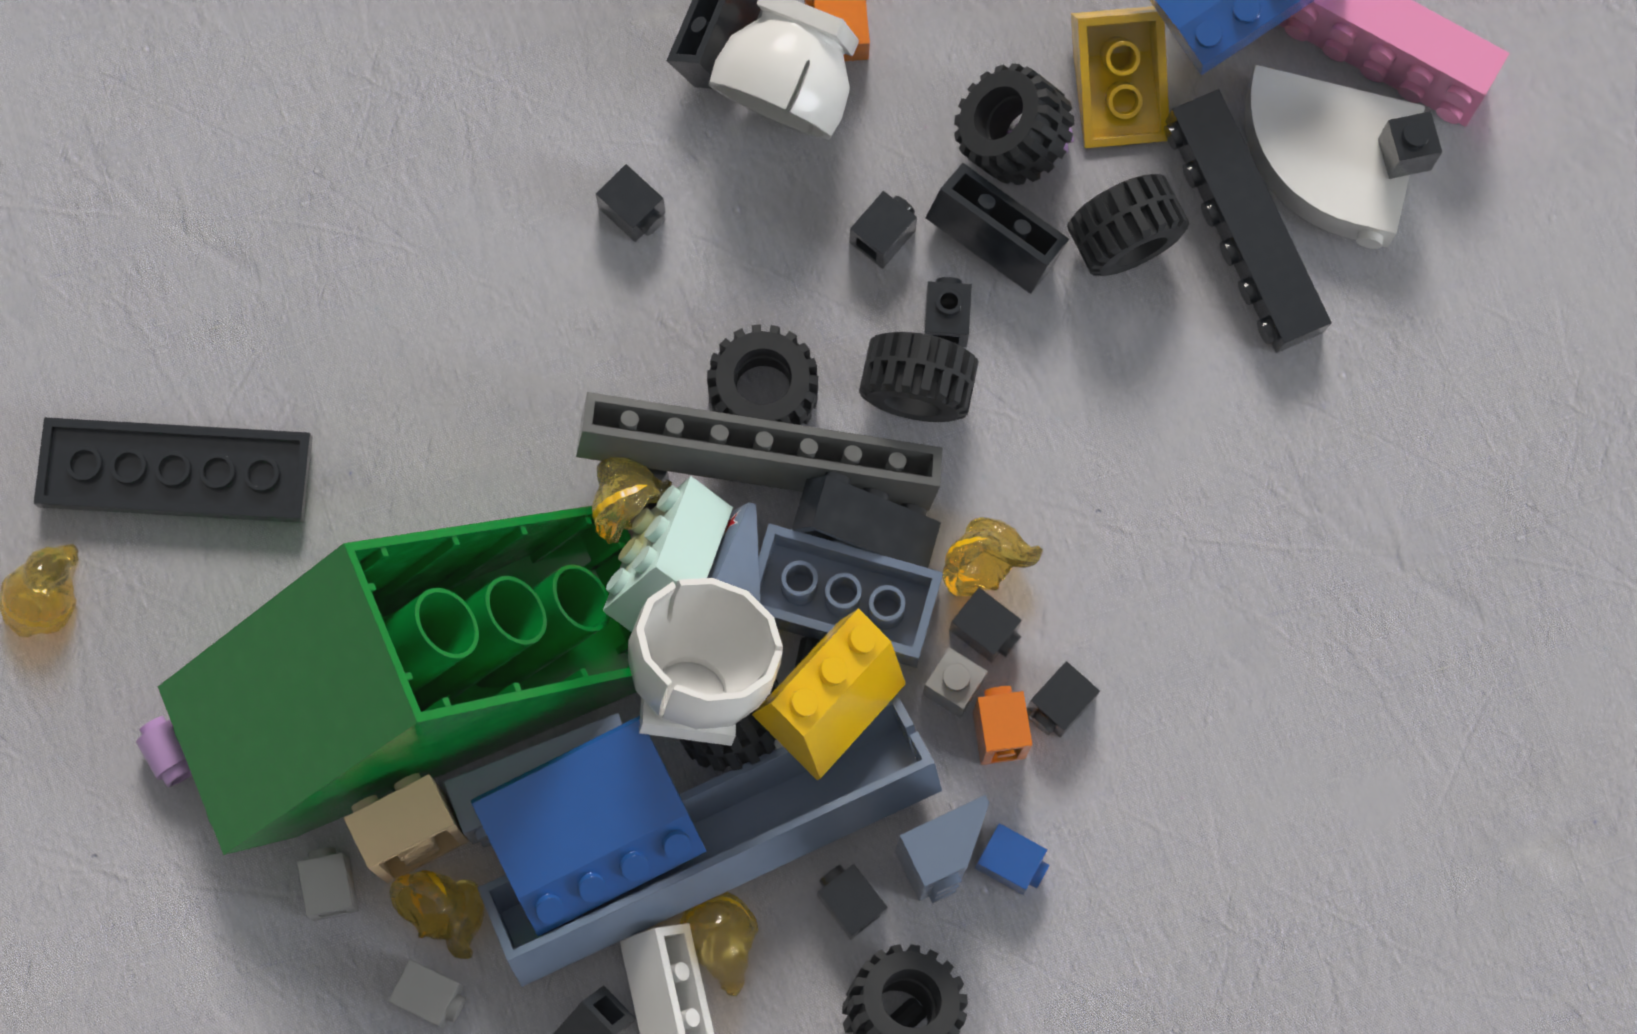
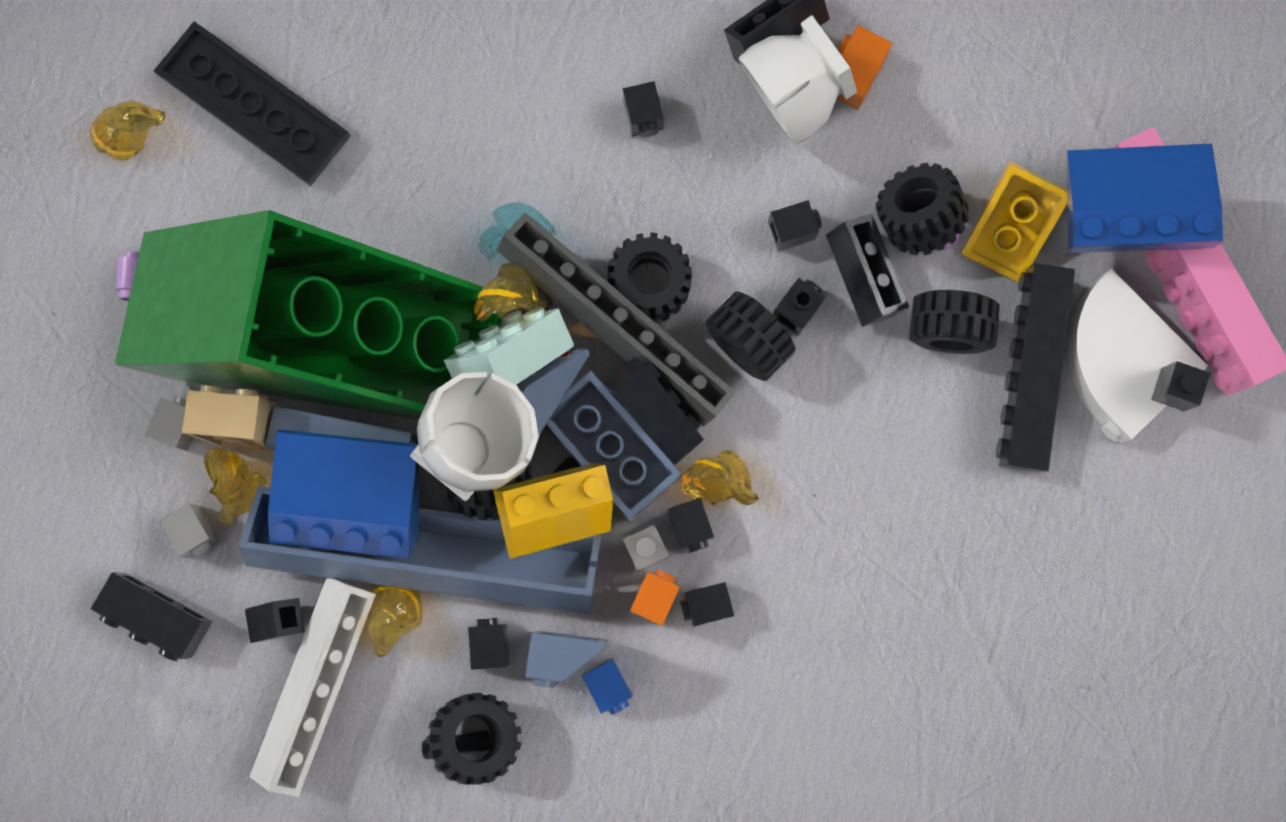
camera: 35 degrees right, 5 degrees up
(563, 418) = (506, 217): none -> clear light blue brick

